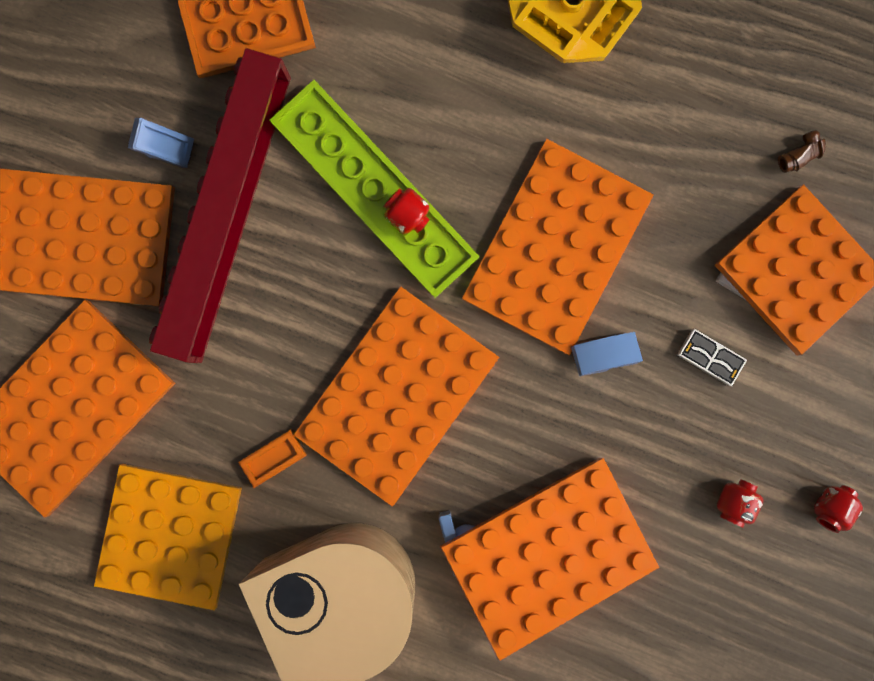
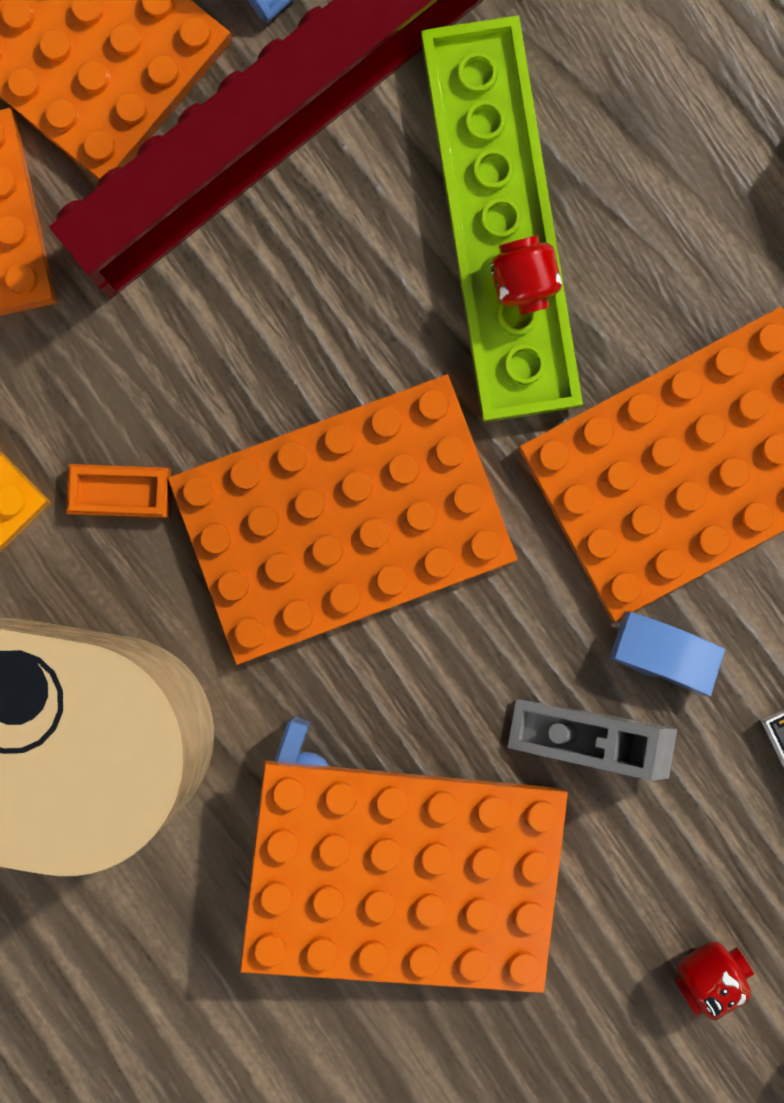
camera: 30 degrees right, 0 degrees up
(598, 422) = (593, 739): none -> light grey slope

